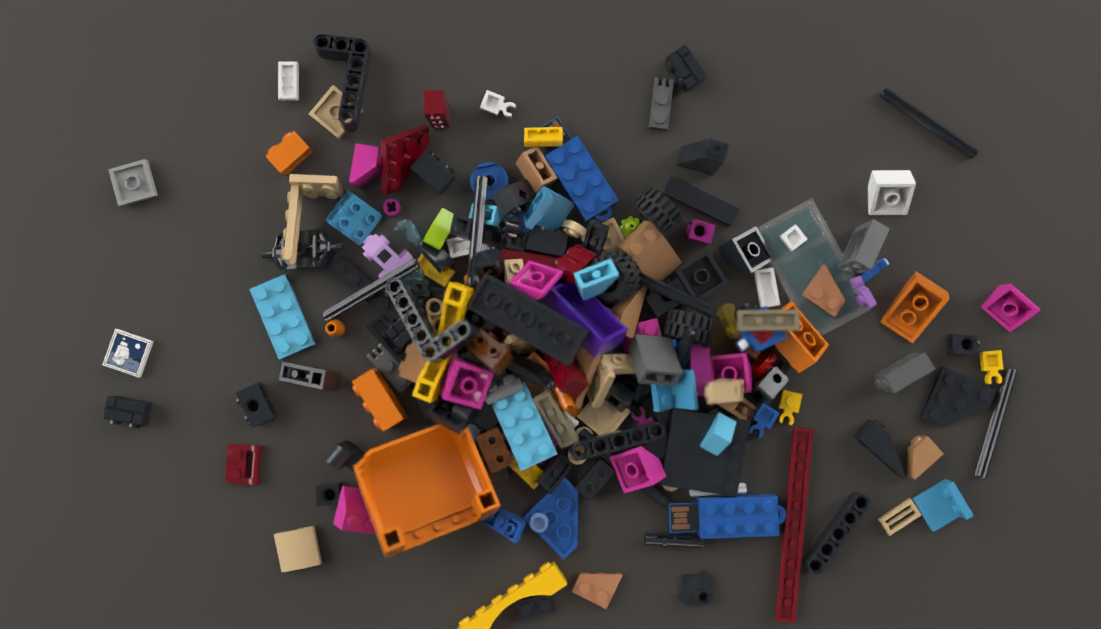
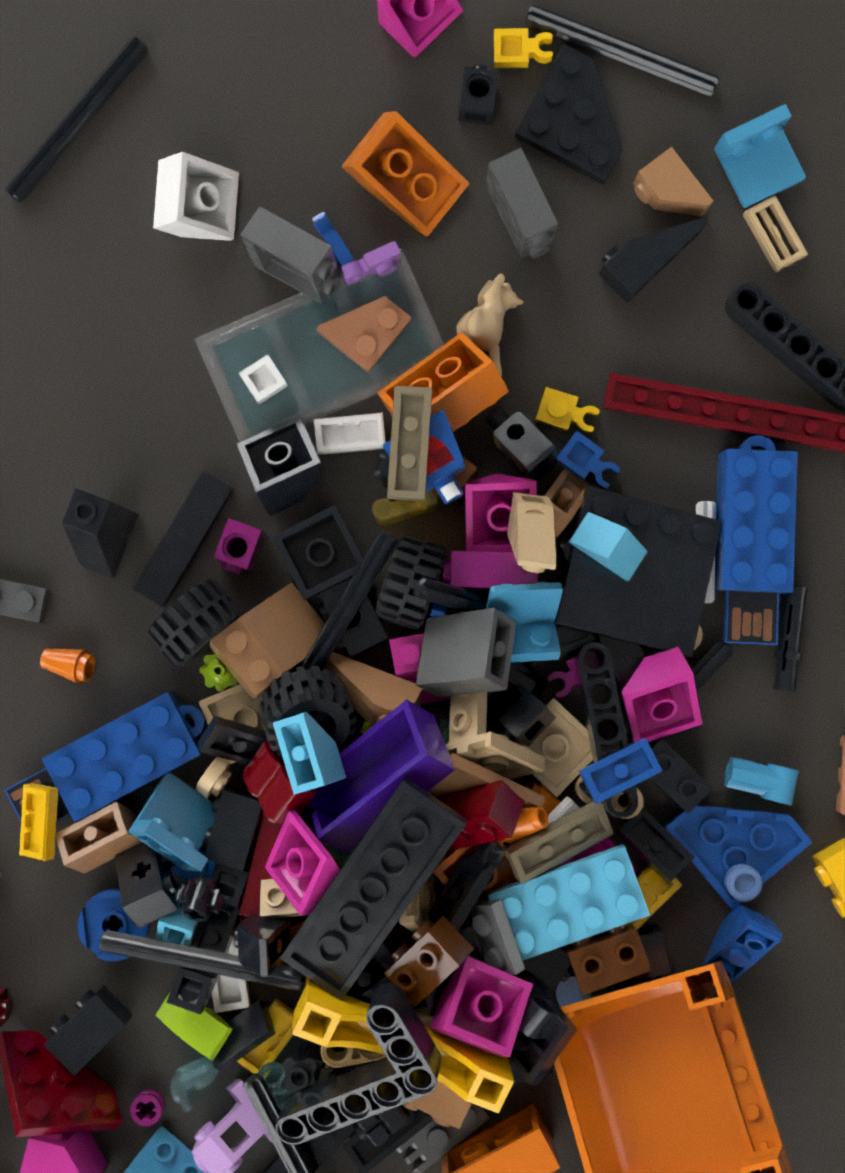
camera: 85 degrees left, 0 degrees up
(594, 534) = (769, 781): none -> dark azure piece
(598, 448) = (620, 771): none -> blue plate
(627, 147) = (69, 663): none -> orange cone
(763, 363) = (487, 452): red gear -> none
(836, 358) = (485, 321): none -> tan animal

